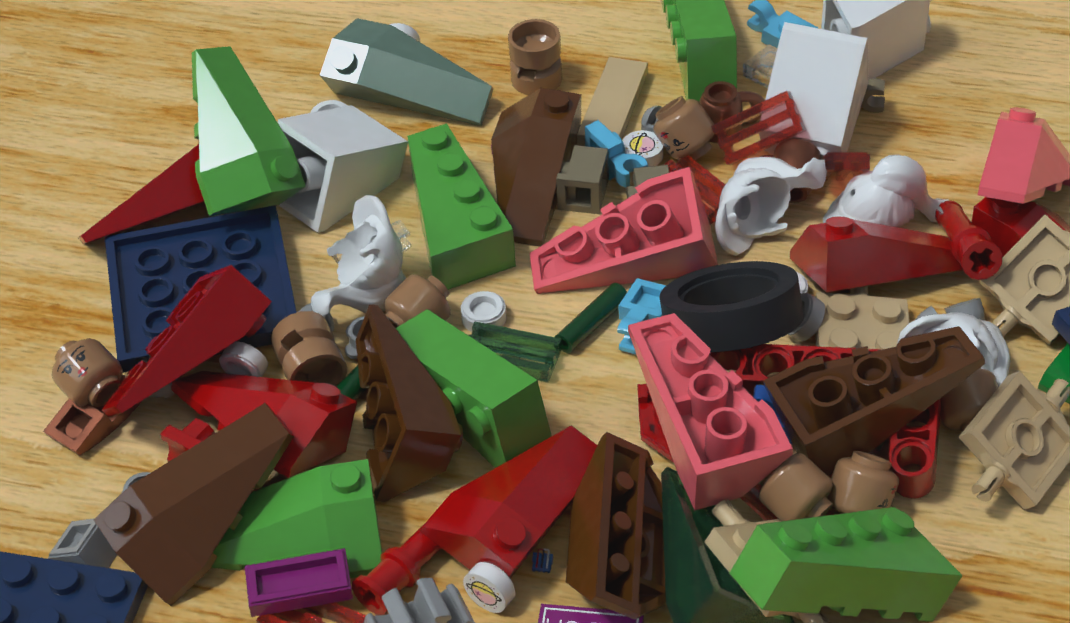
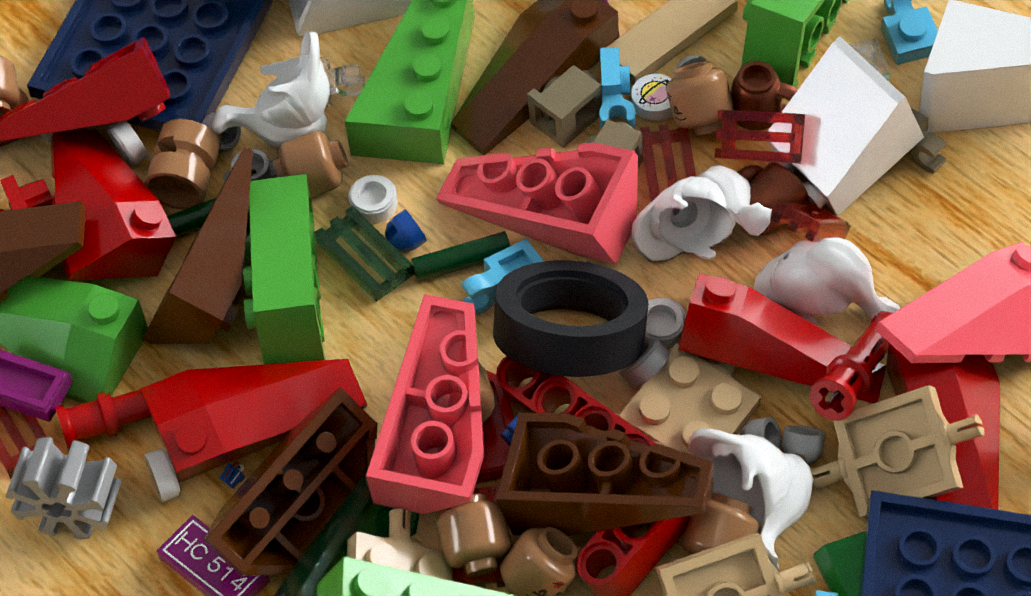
camera: 35 degrees right, 10 degrees up
(534, 317) = (404, 232): none -> blue hinge

